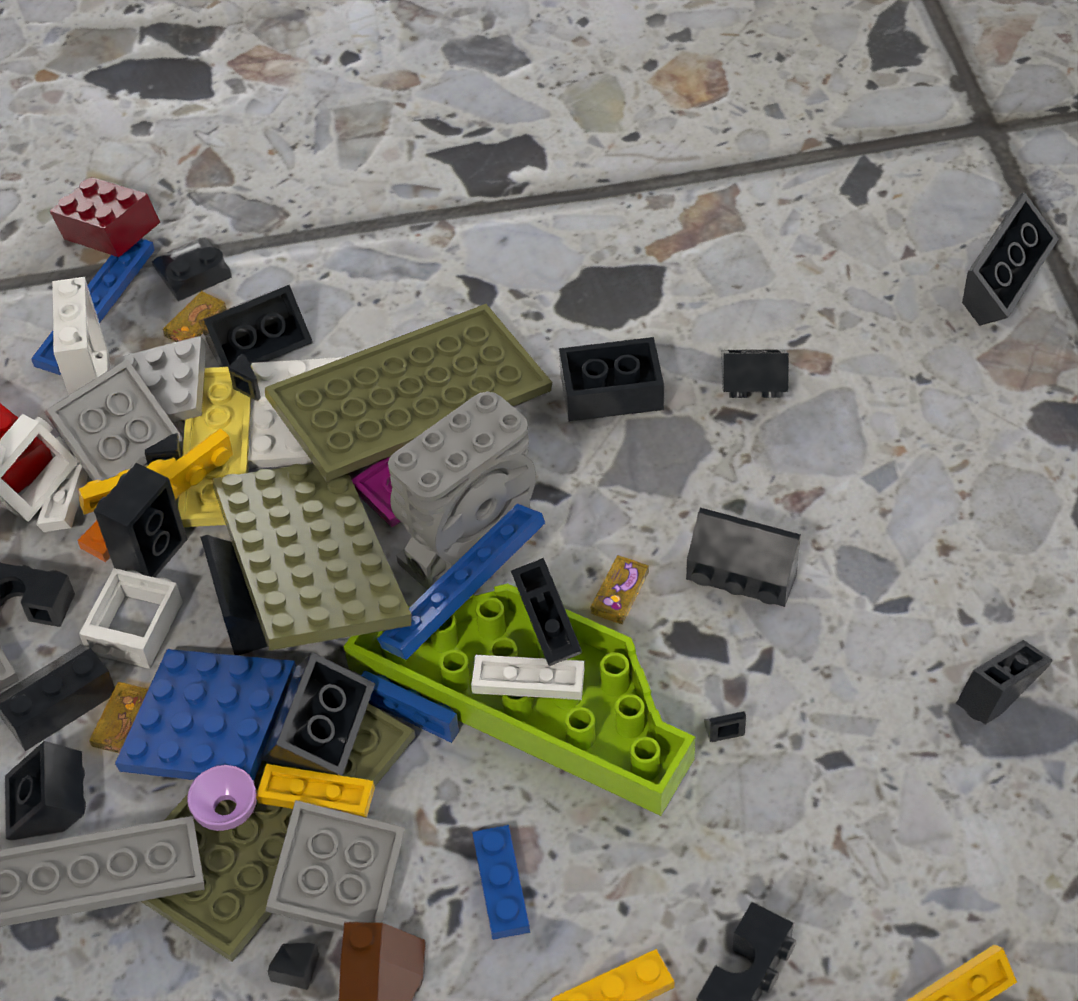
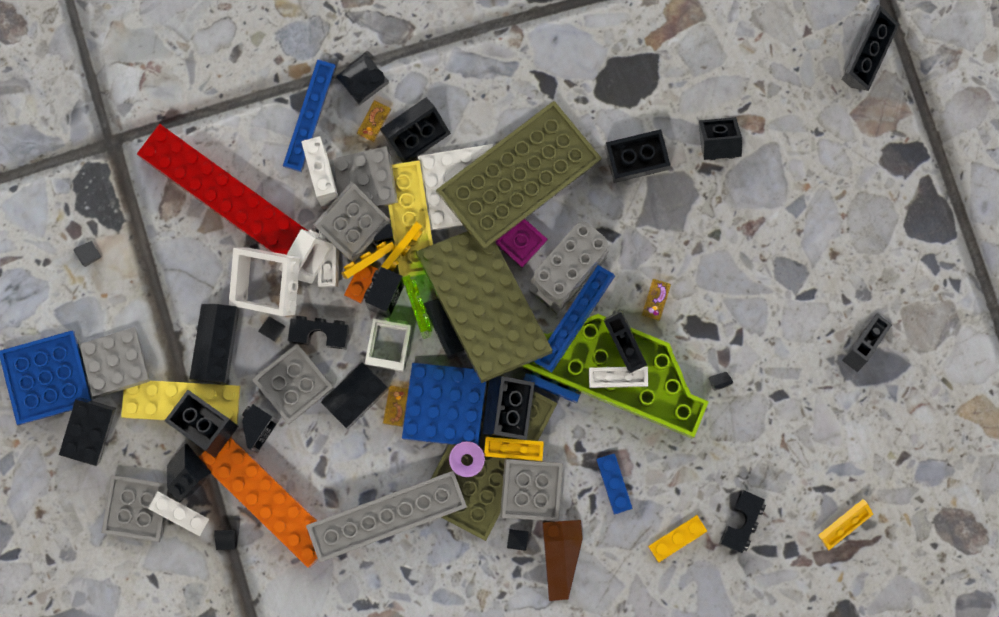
camera: 10 degrees left, 30 degrees up
(44, 792) = (367, 458): black slope -> none
(105, 216) = (302, 50): dark red brick -> none
(190, 549) = (417, 306): none -> clear neon green plate
(244, 378) = (419, 176): black slope -> none
(743, 557) = (724, 281): black slope -> none

